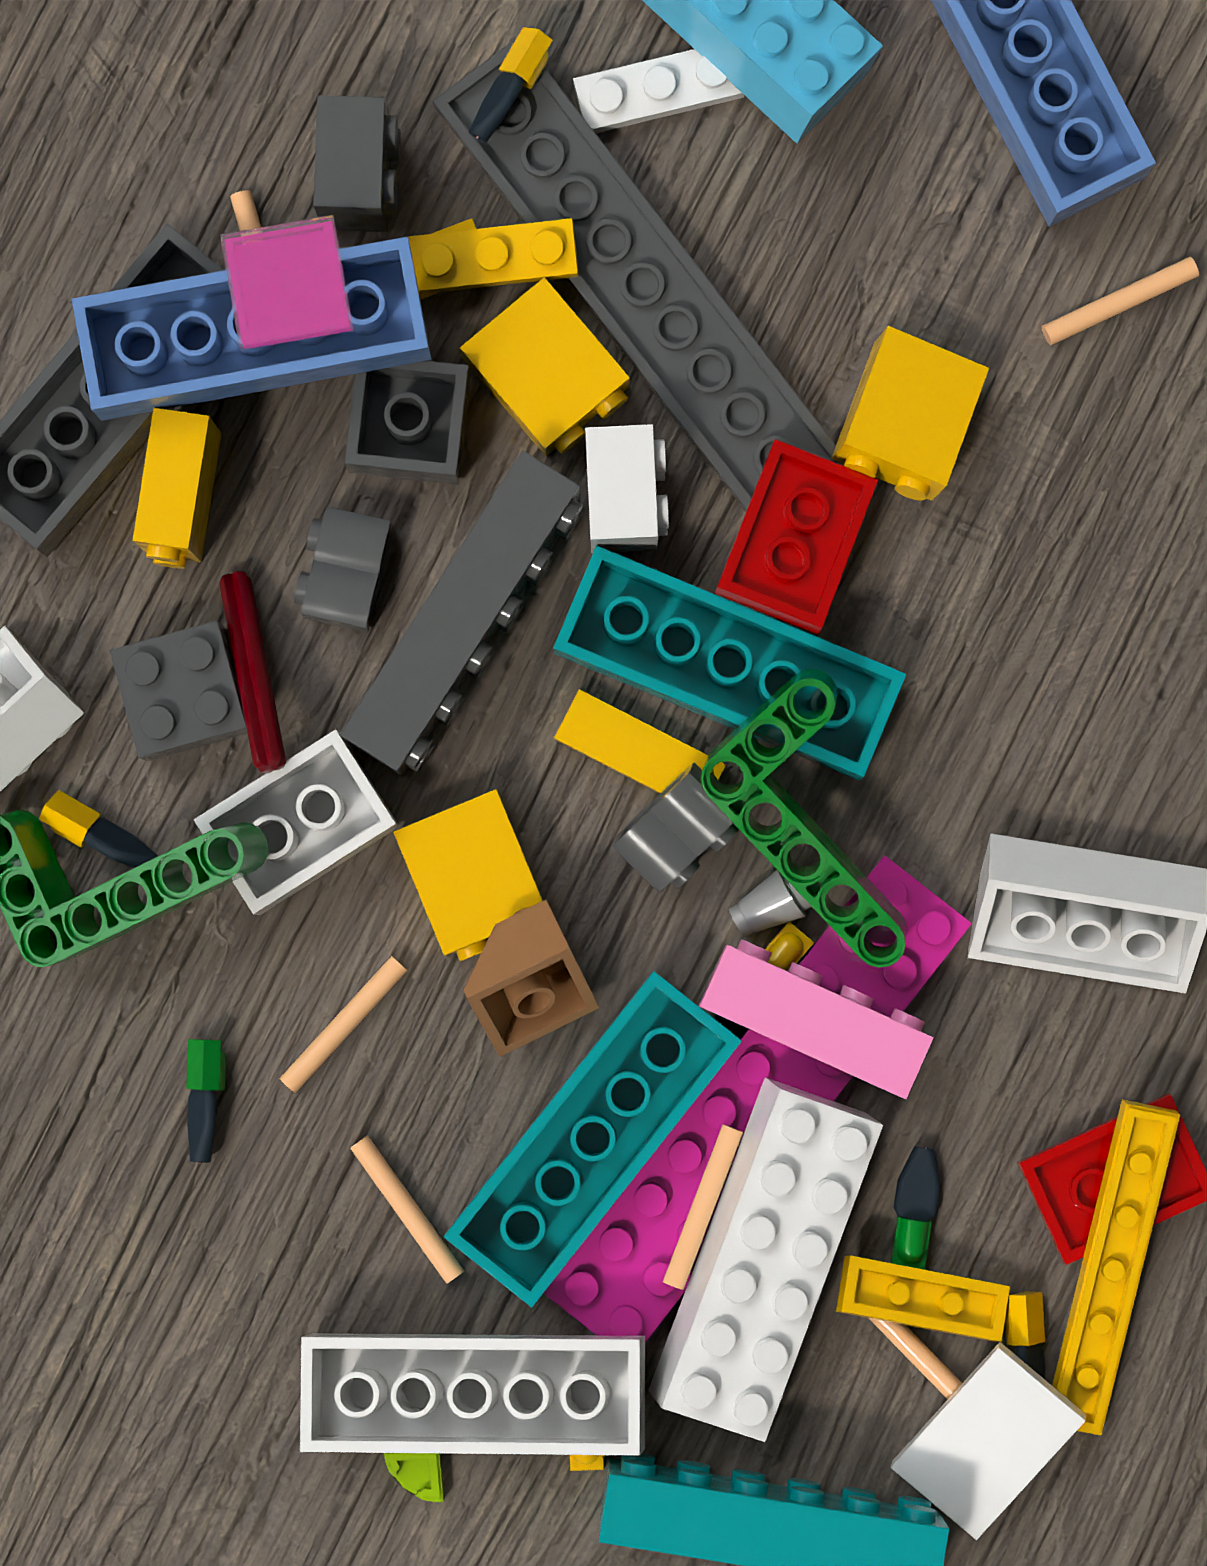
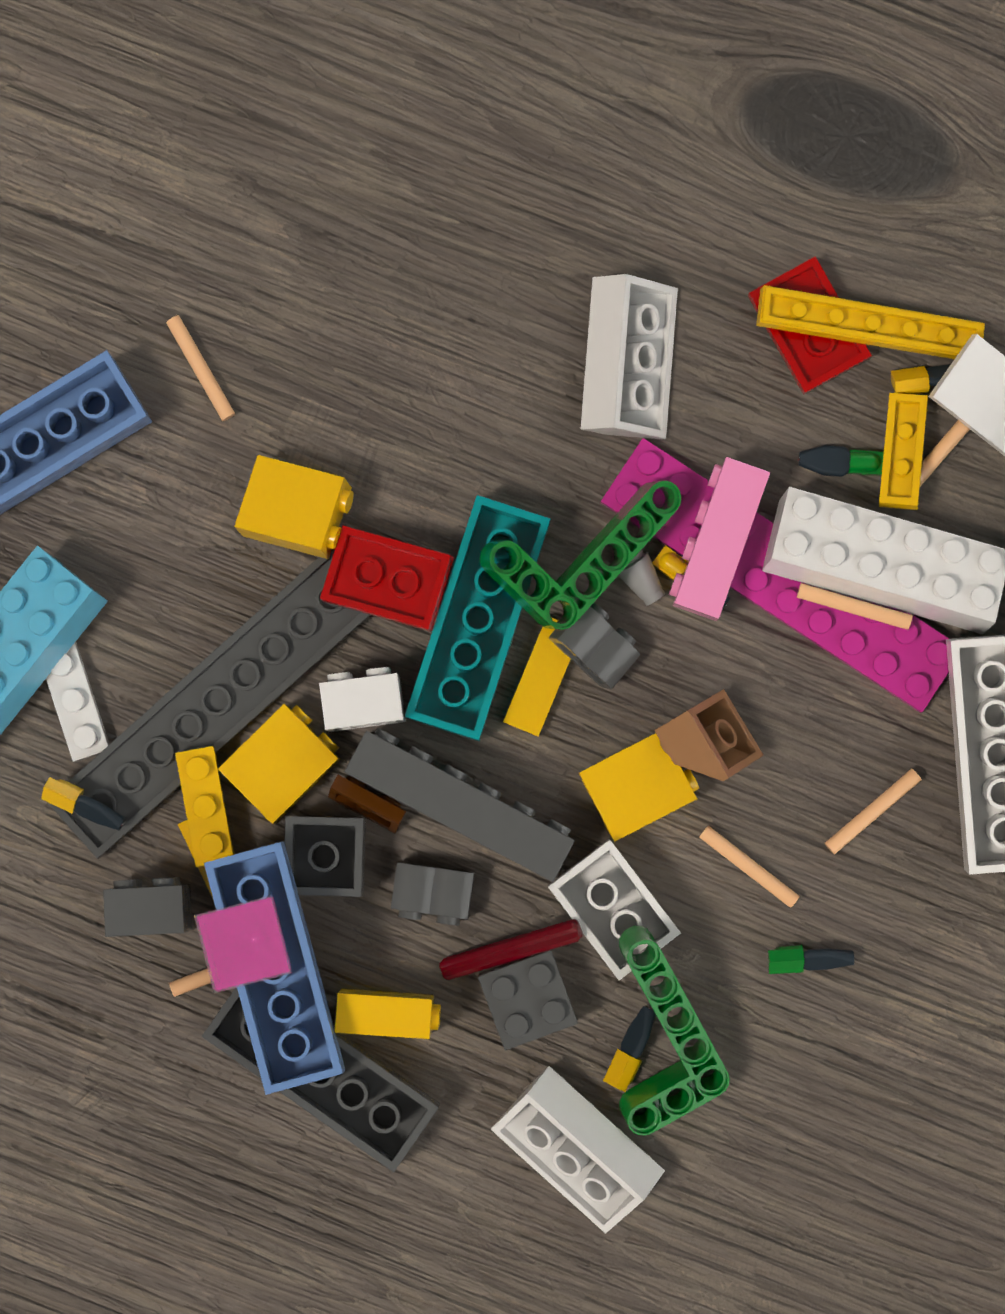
camera: 90 degrees left, 0 degrees up
(477, 486) = (354, 796): none -> reddish brown plate
(592, 1139) = (814, 686): teal brick -> none

